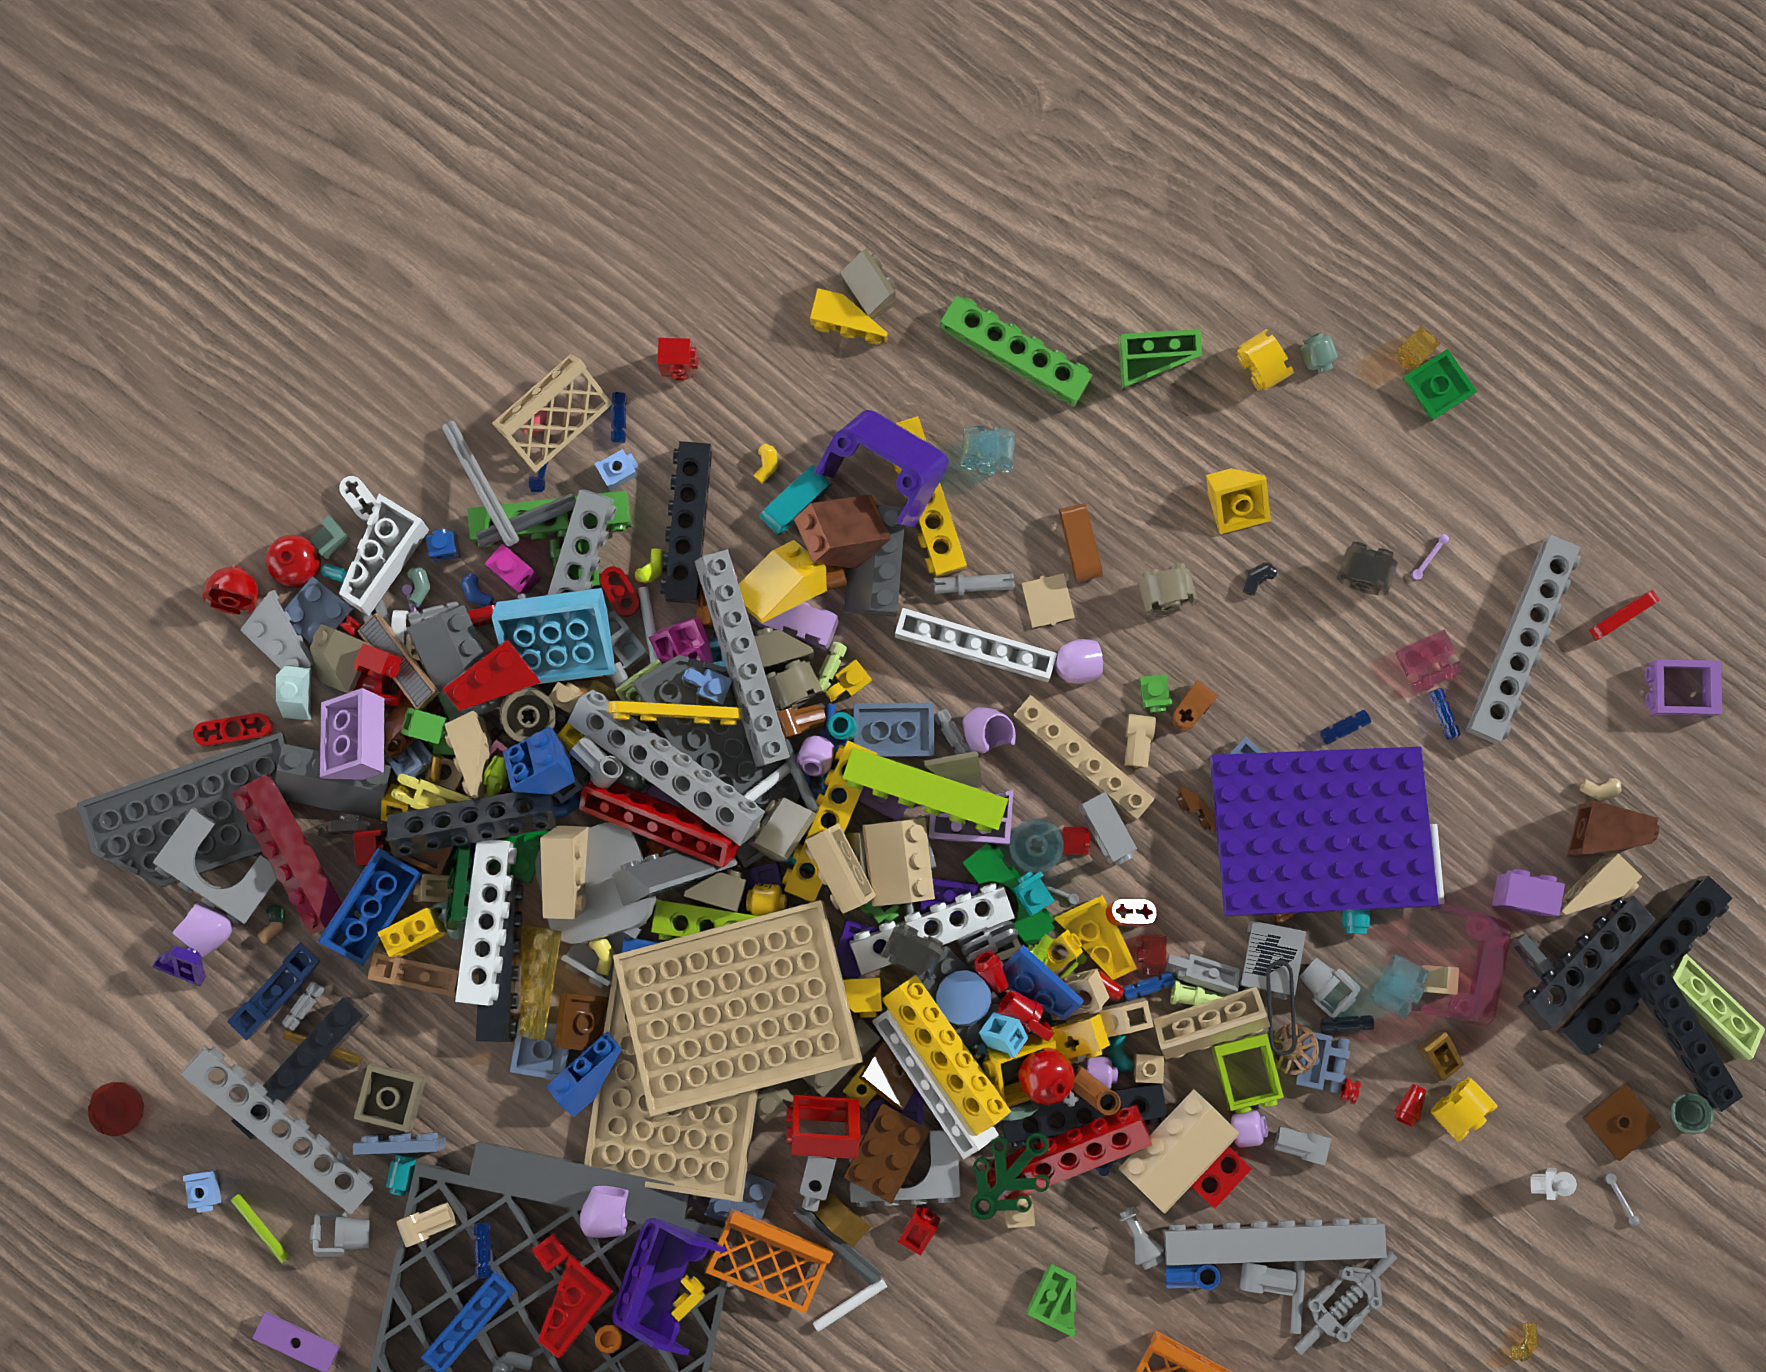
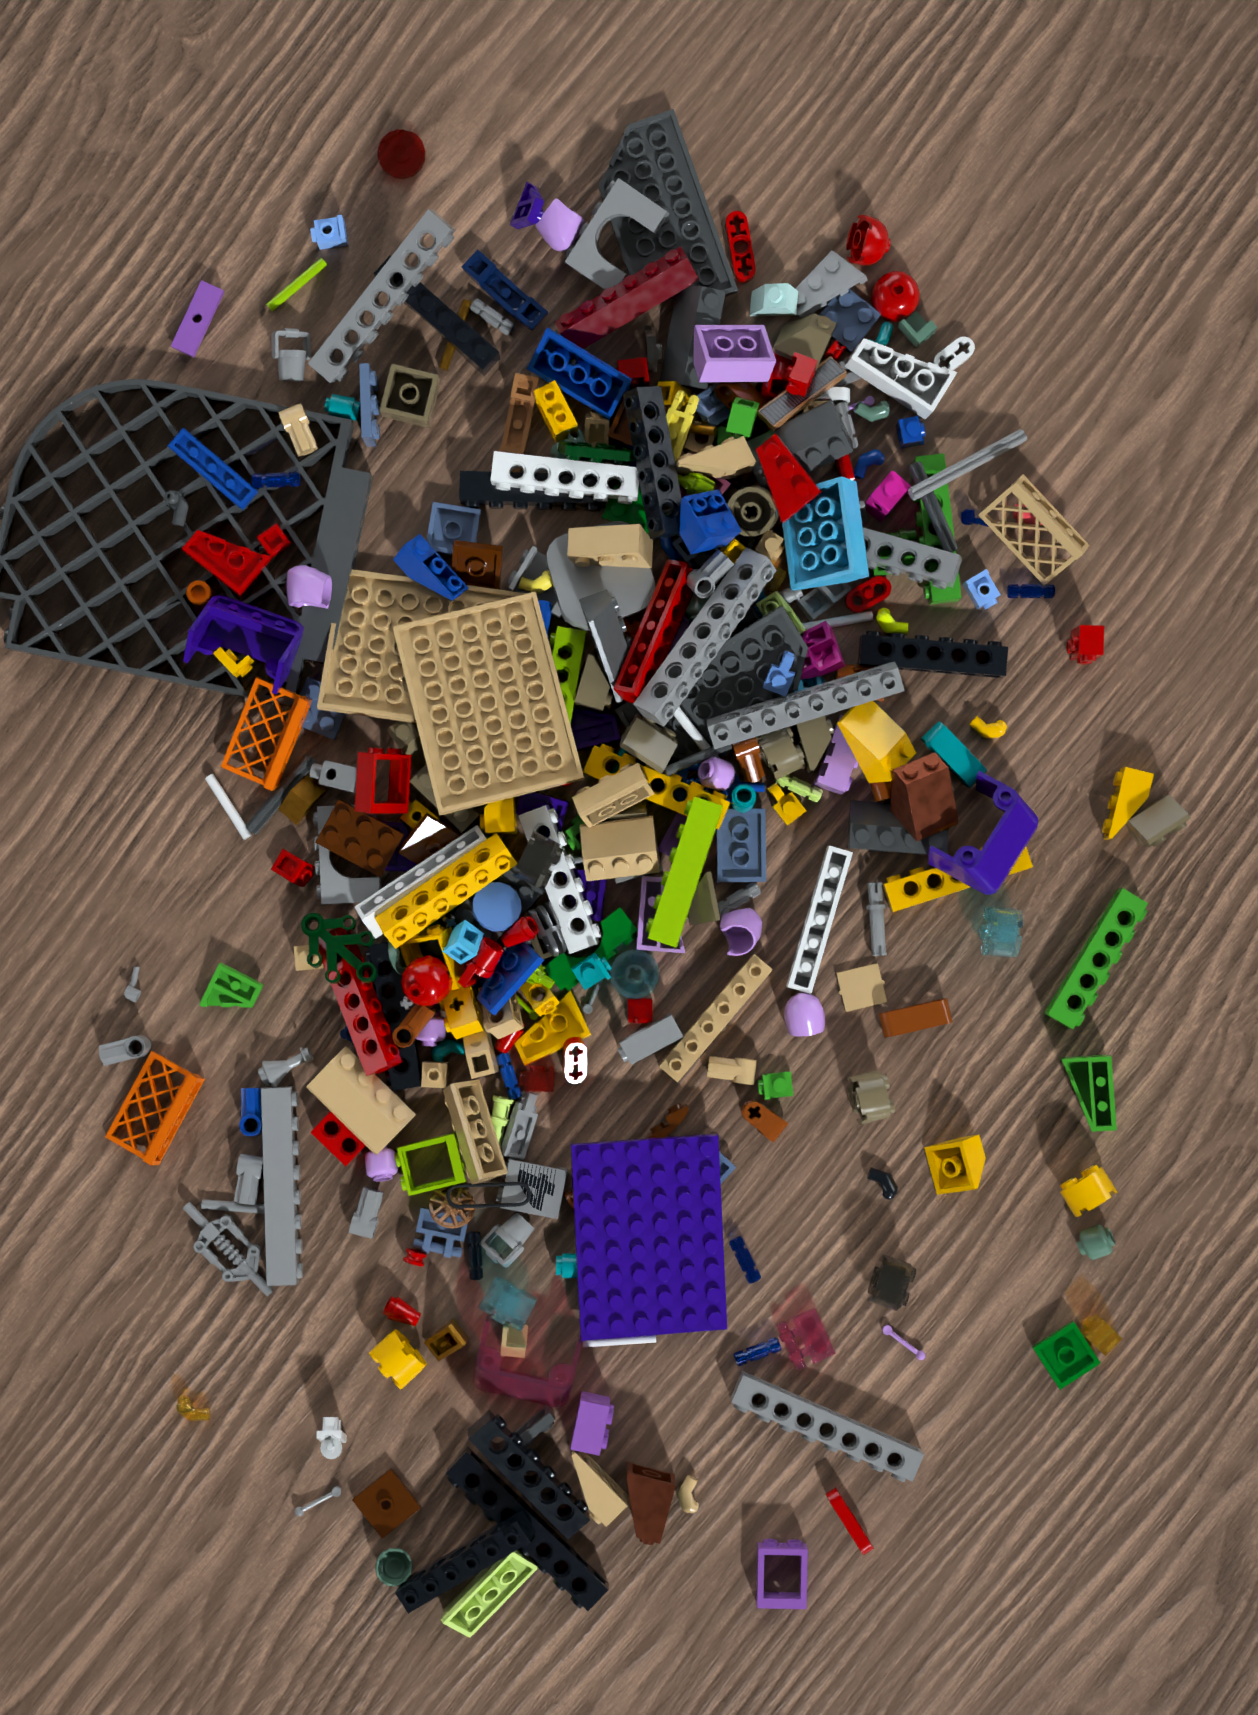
camera: 90 degrees right, 5 degrees up
(276, 923) = (566, 291): arm -> none
(538, 970) = (515, 524): clear yellow wing -> none
(650, 711) = (754, 621): yellow piece -> none
(765, 899) = (585, 729): yellow head -> none

